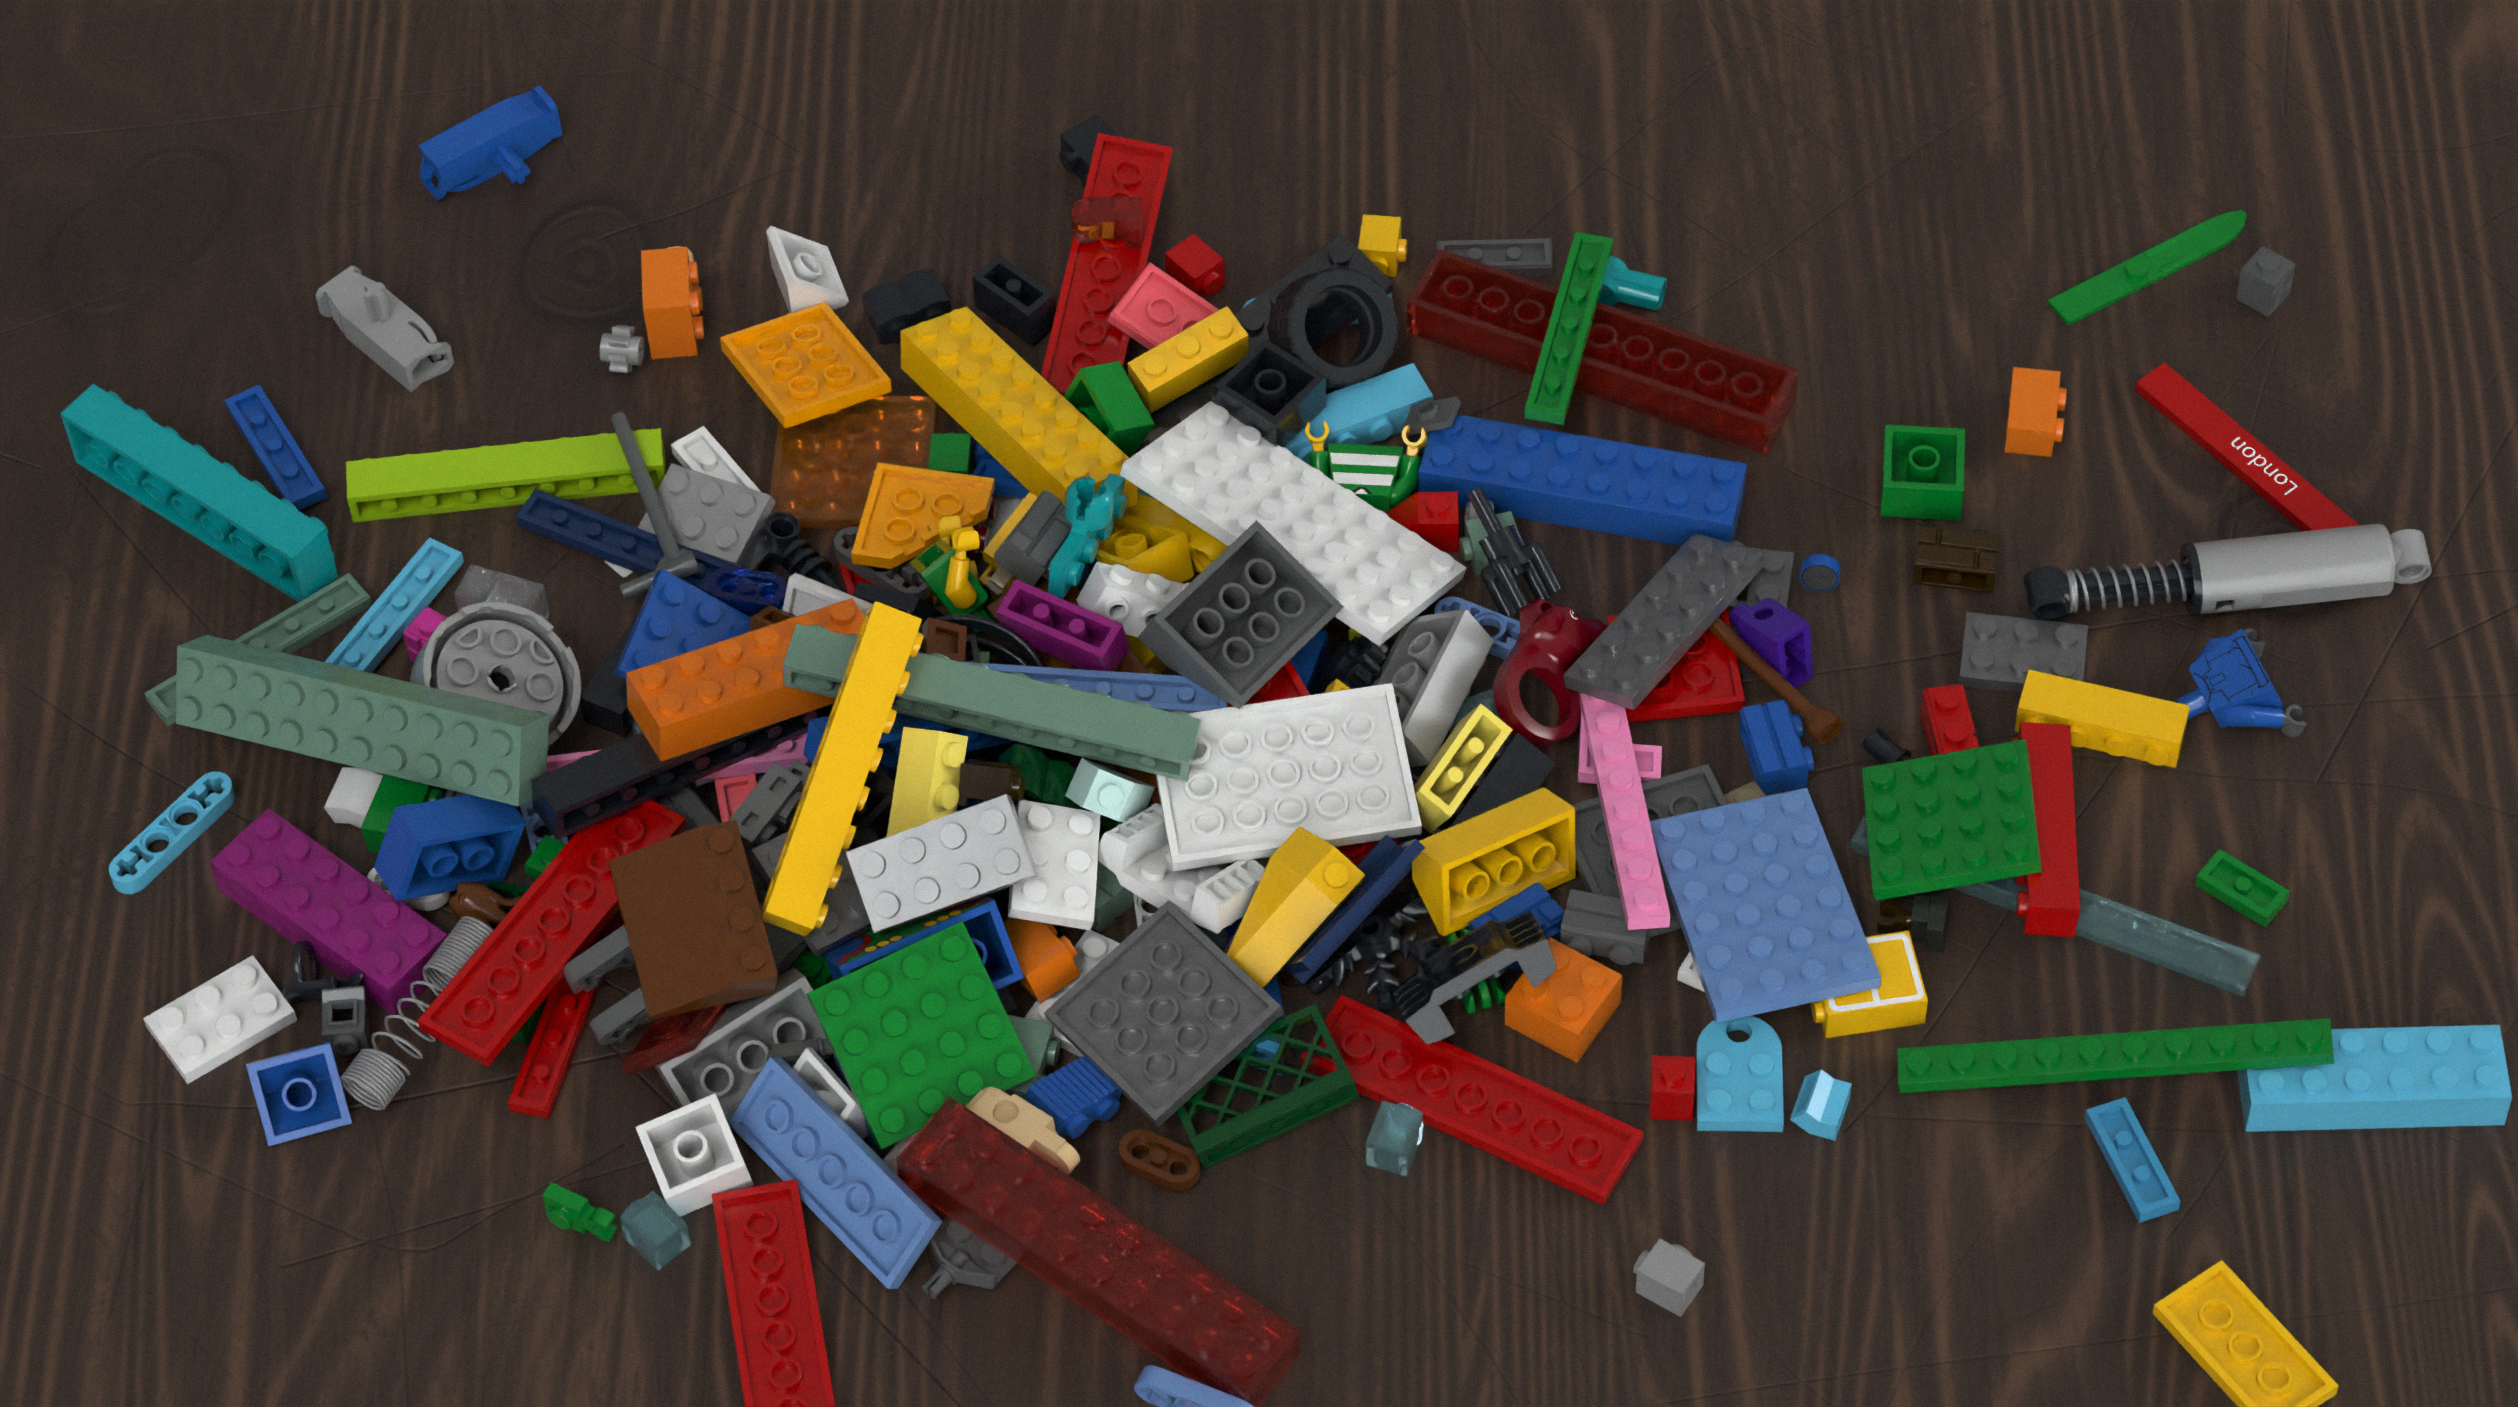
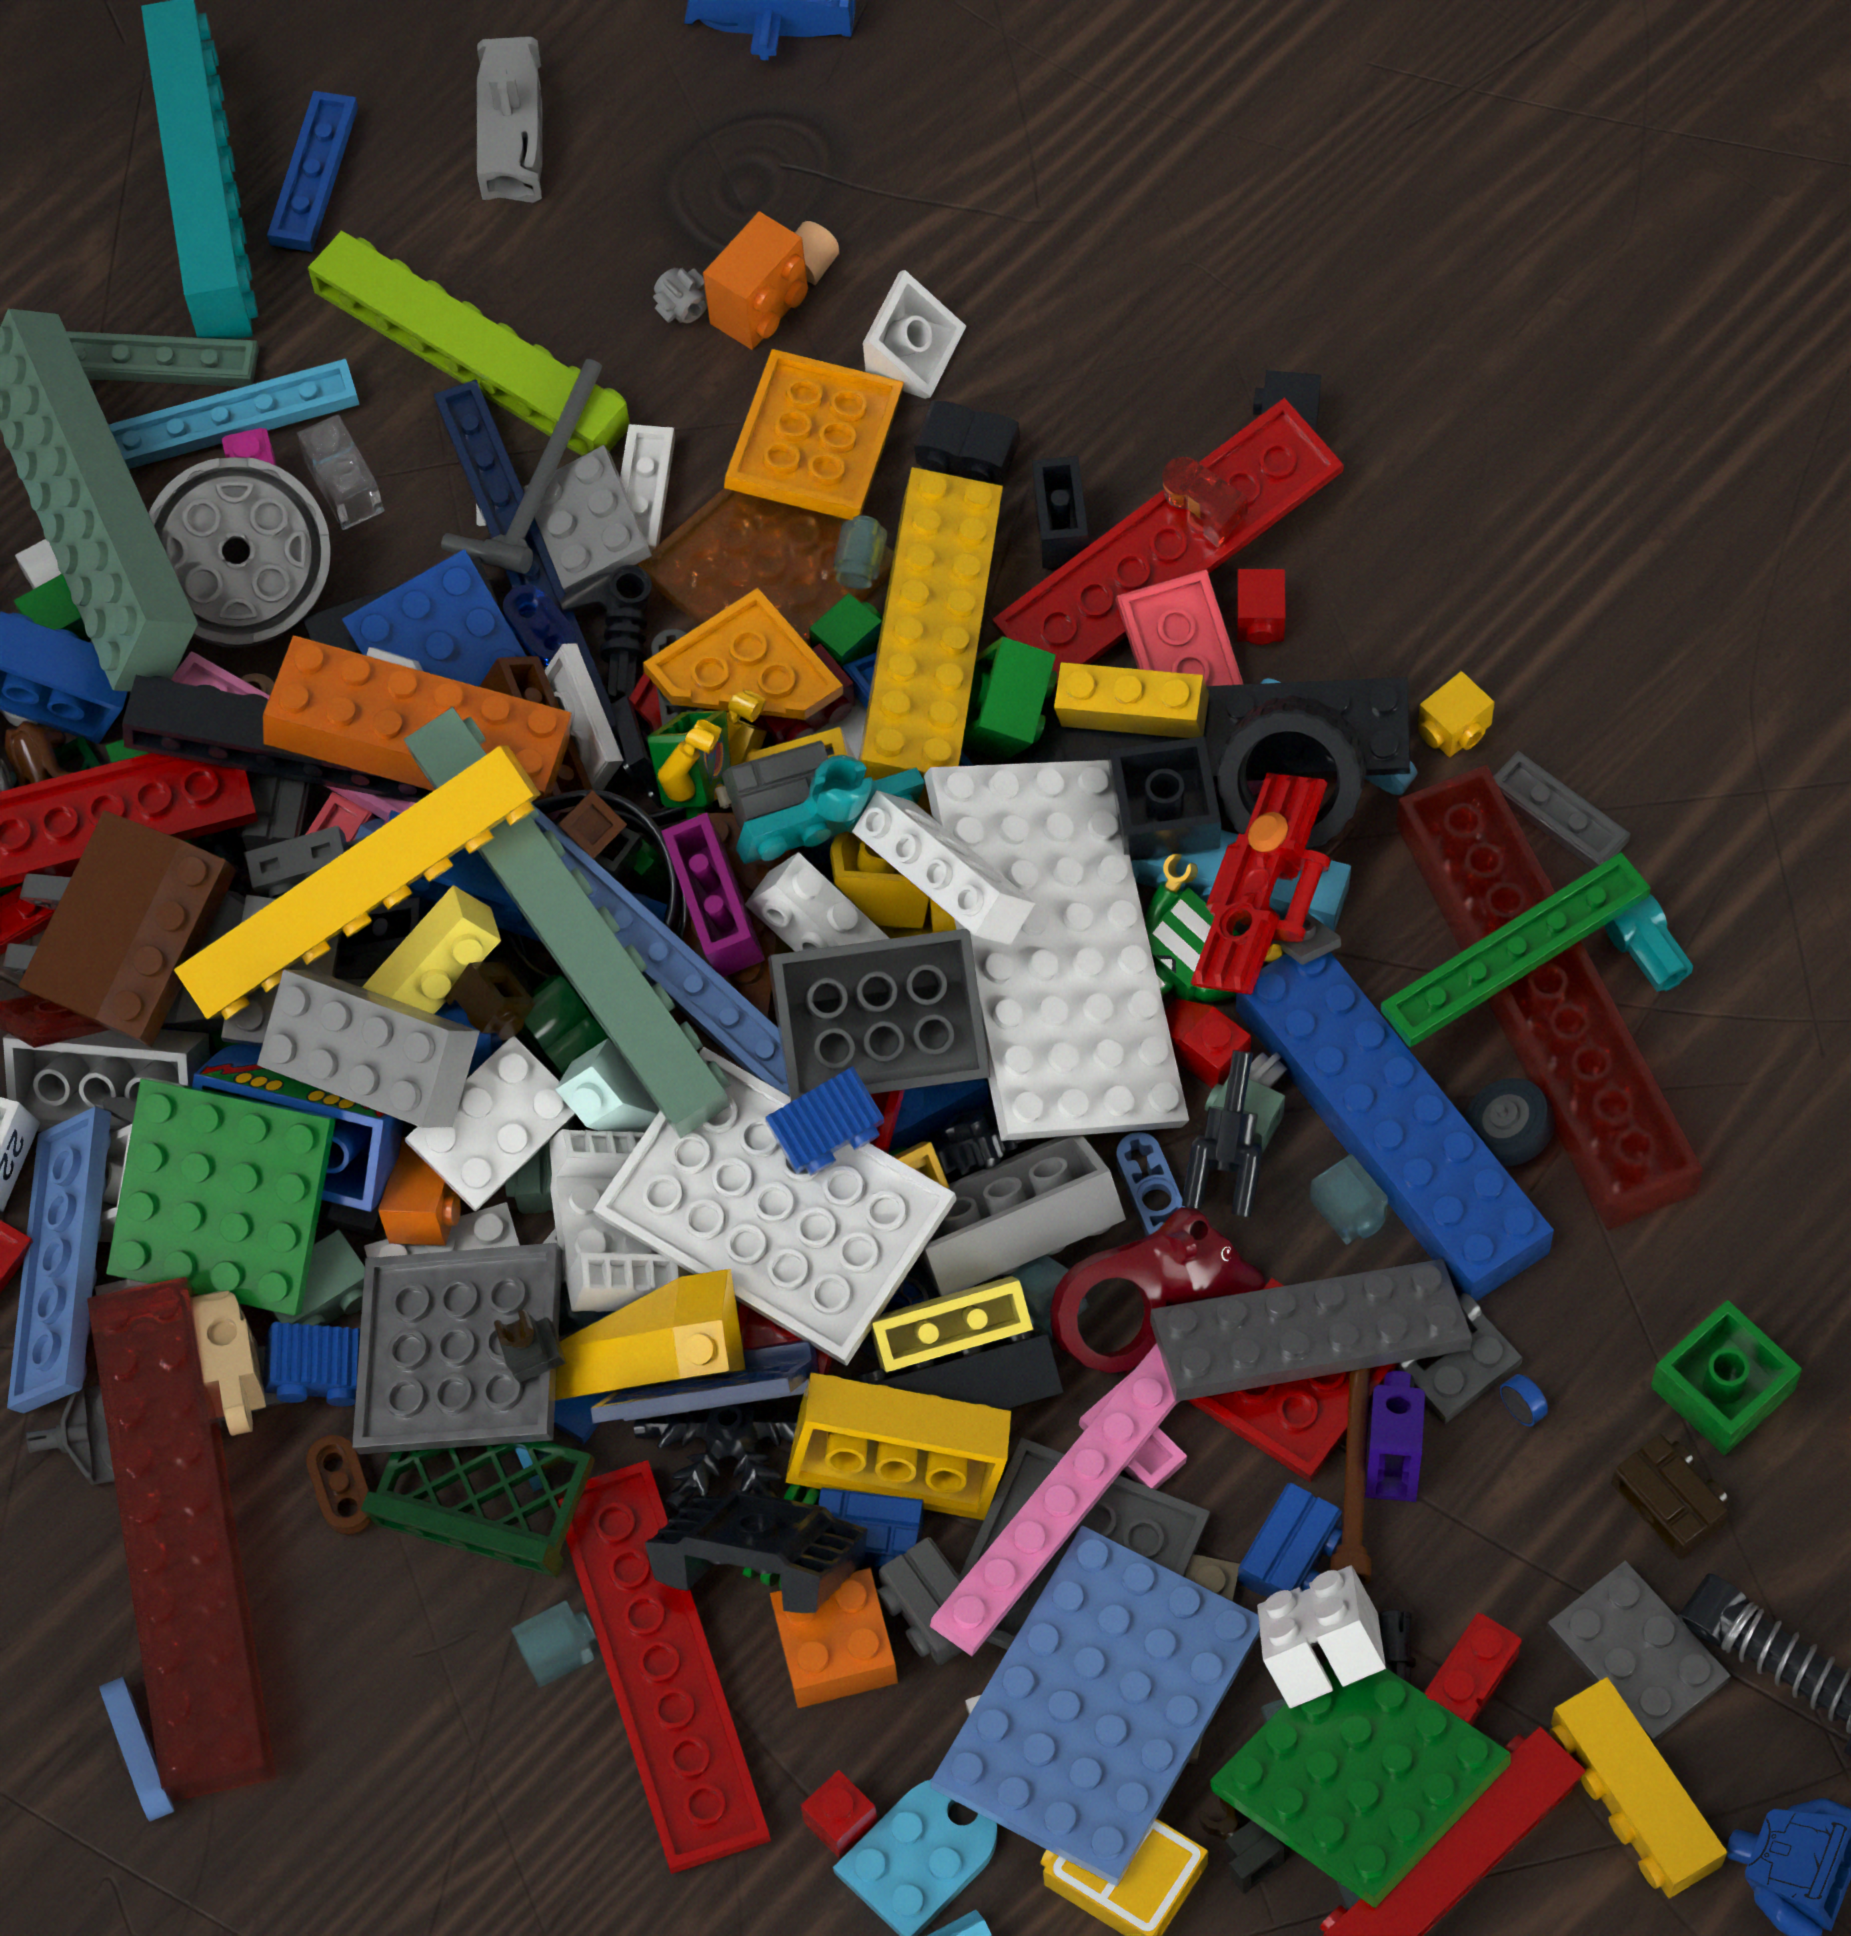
camera: 45 degrees right, 10 degrees up
(914, 405) = (859, 552): none -> clear light blue brick
(1197, 506) = (943, 868): none -> white brick
(1220, 962) = (529, 1346): none -> pearl dark grey piece
(1277, 695) = (825, 1122): none -> blue brick
(1370, 401) = (1242, 889): none -> red piece
(1605, 544) = (1349, 1200): none -> clear light blue brick
(1654, 425) = (1512, 1120): none -> black wheel
(1835, 772) = (1330, 1614): none -> white piece

